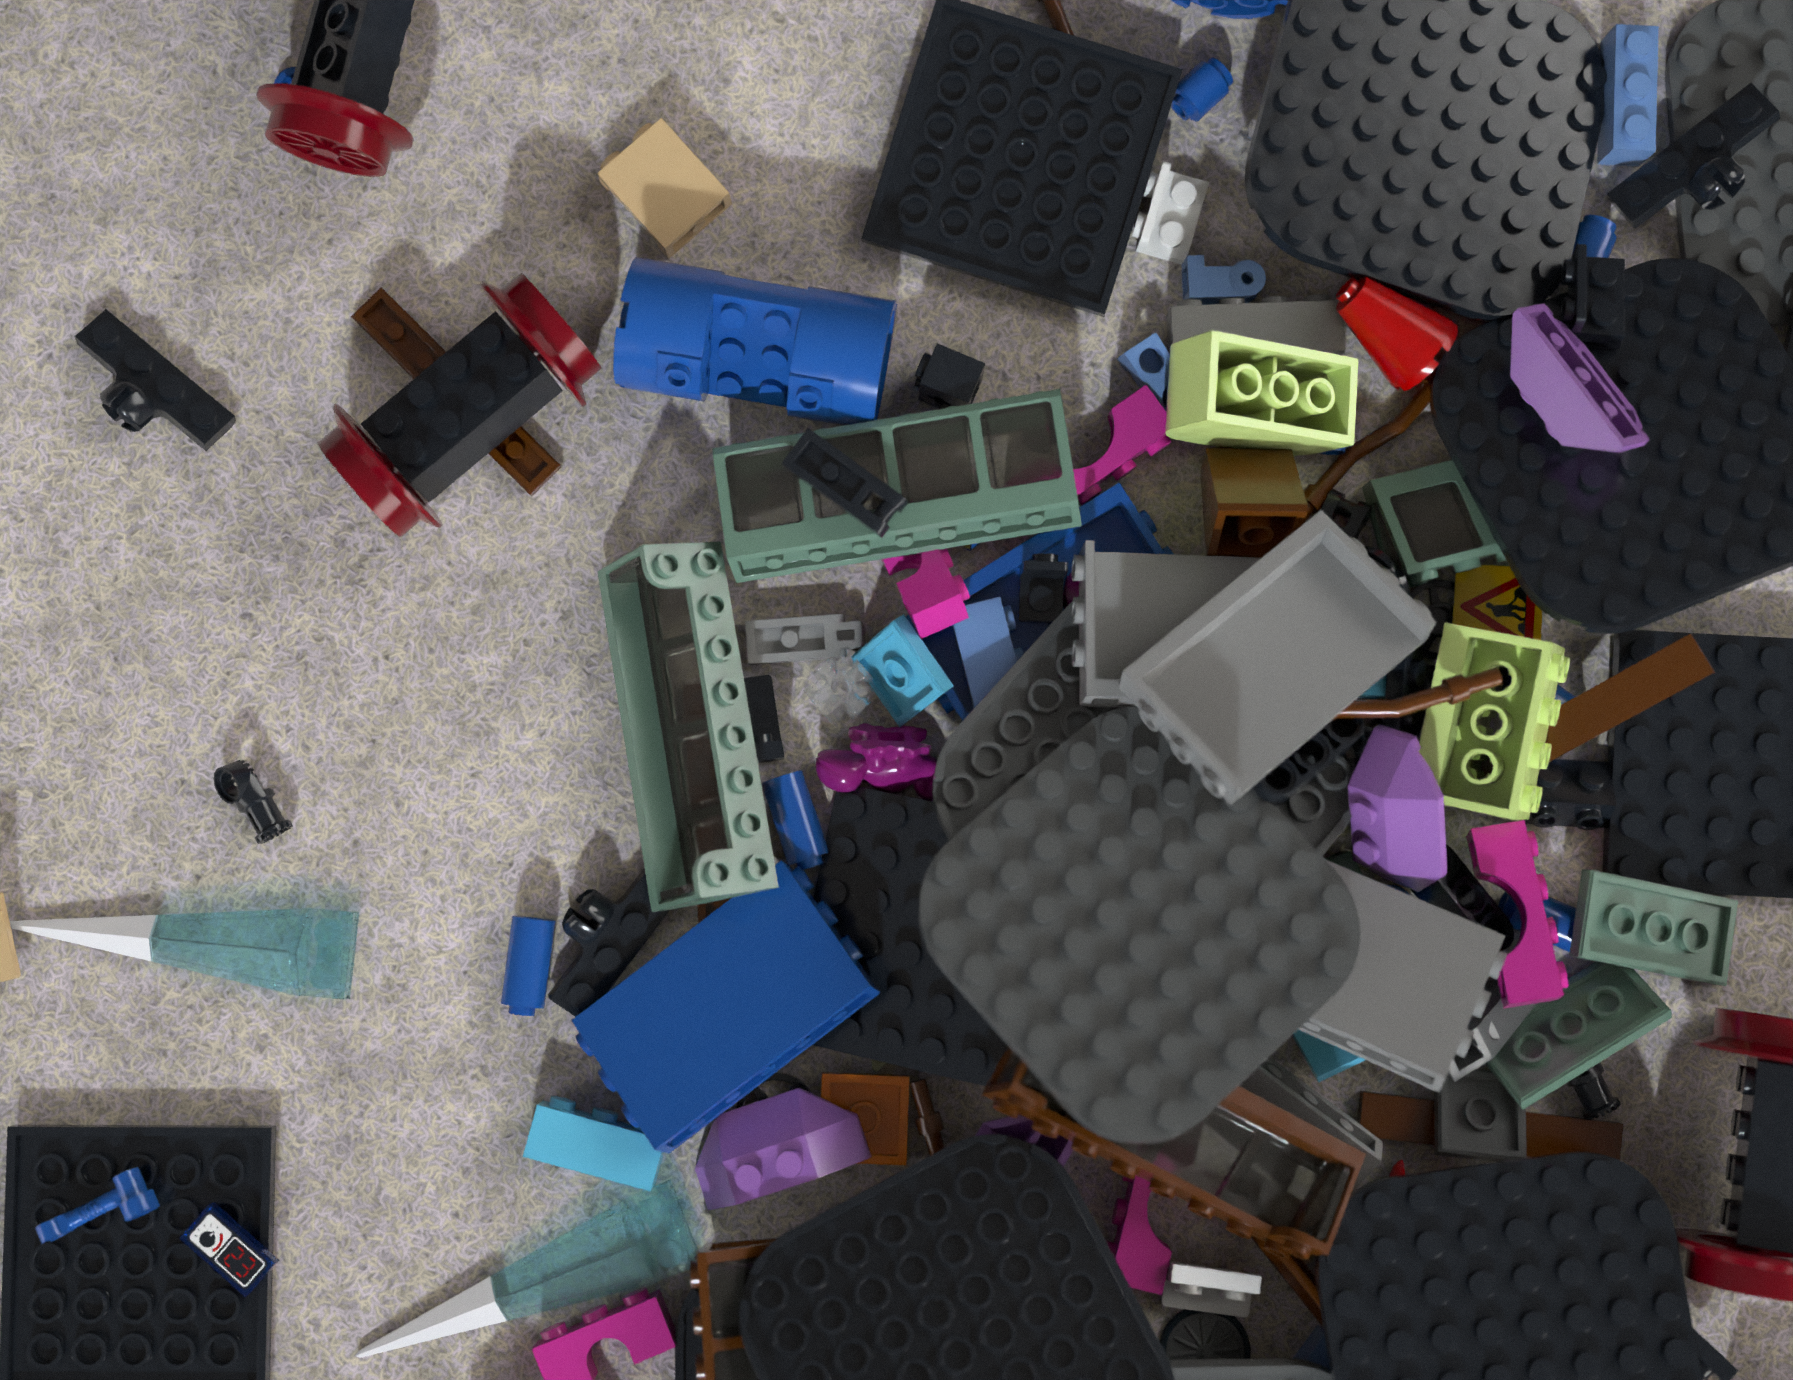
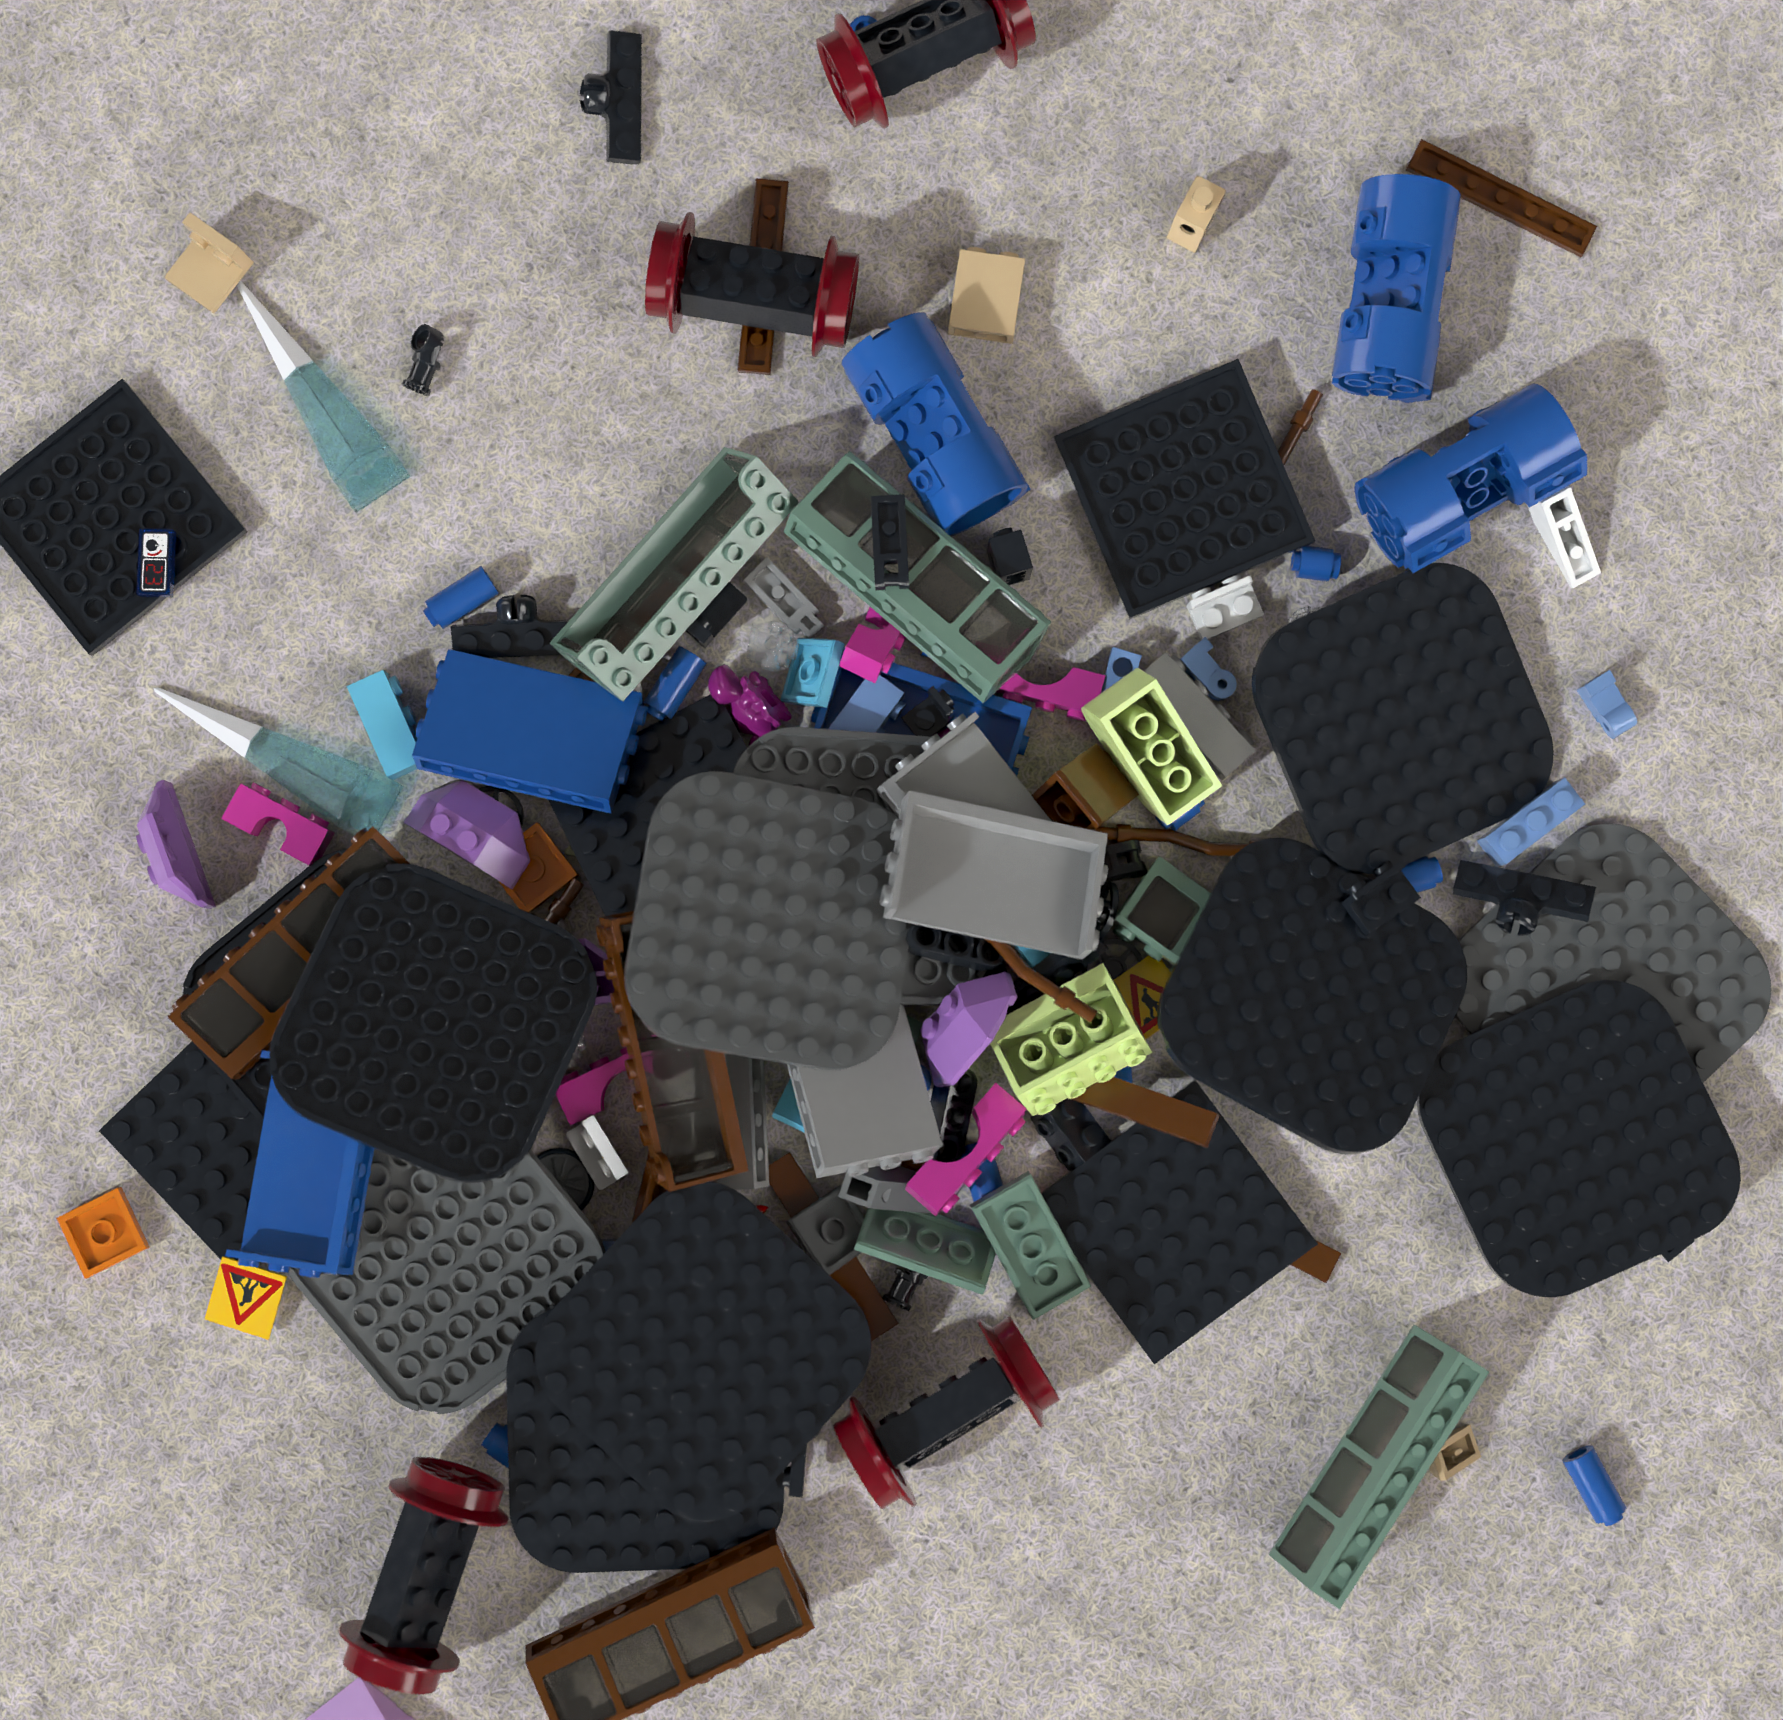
camera: 55 degrees right, 0 degrees up
(130, 1195) = (140, 480): blue brick -> none
(1394, 330) = (1261, 795): red cone -> none
(1569, 385) = (1309, 921): medium lavender wedge -> none

